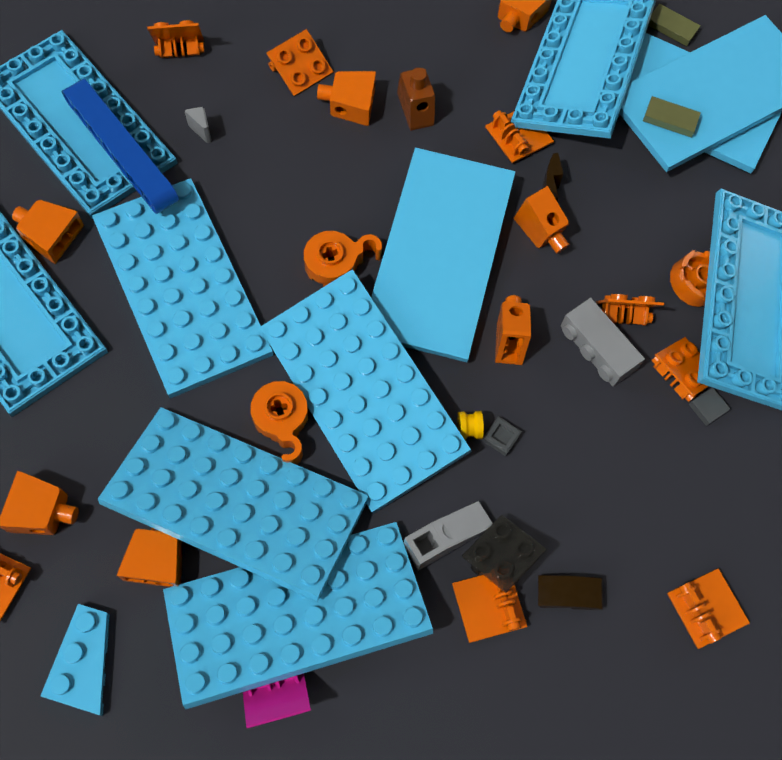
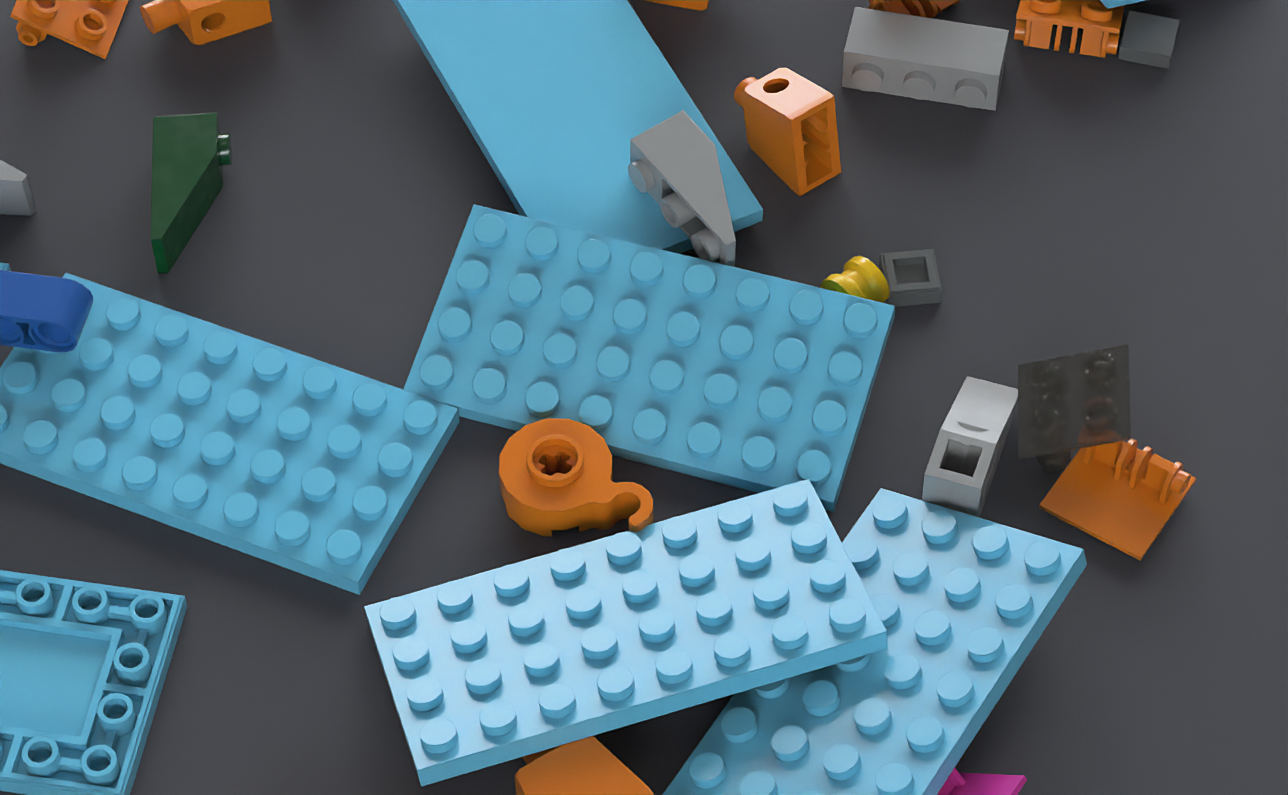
camera: 35 degrees left, 15 degrees down
(267, 171) = (185, 179): none -> dark green slope
(345, 252) = (418, 219): orange piece -> none
(445, 324) = (685, 178): none -> light grey slope
(570, 592) = (1205, 391): dark brown slope -> none

